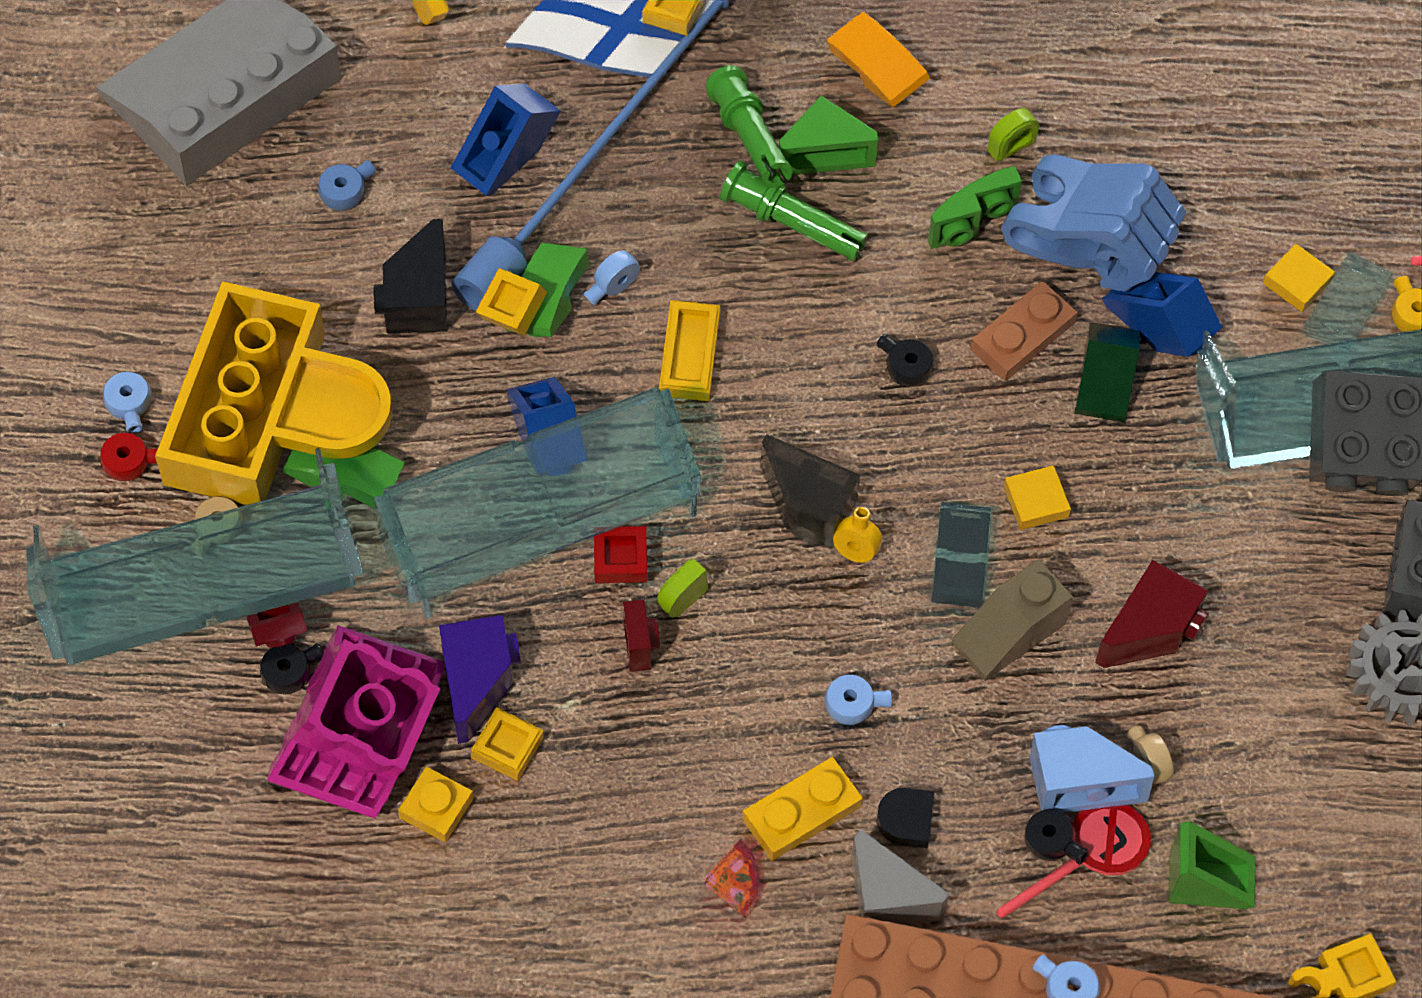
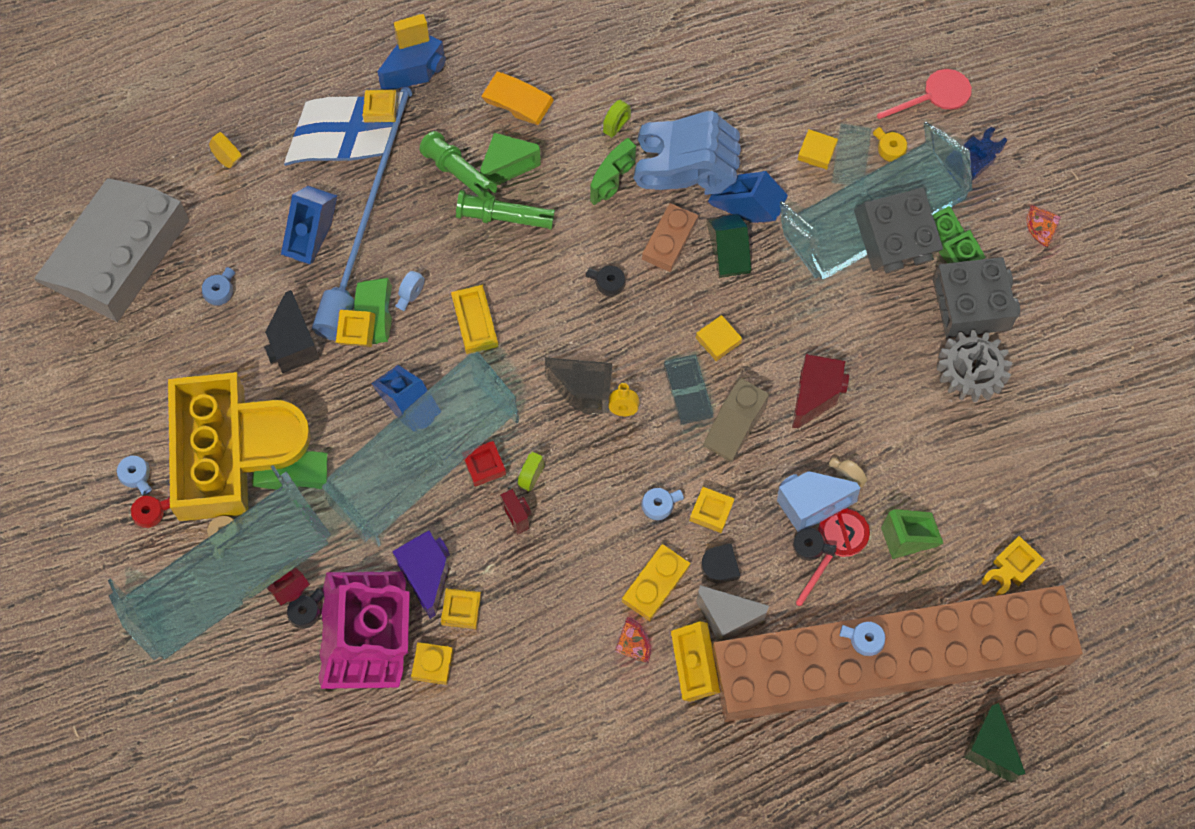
camera: 20 degrees left, 5 degrees up
(812, 936) = (695, 661): none -> yellow plate
(925, 734) = (712, 509): none -> yellow plate

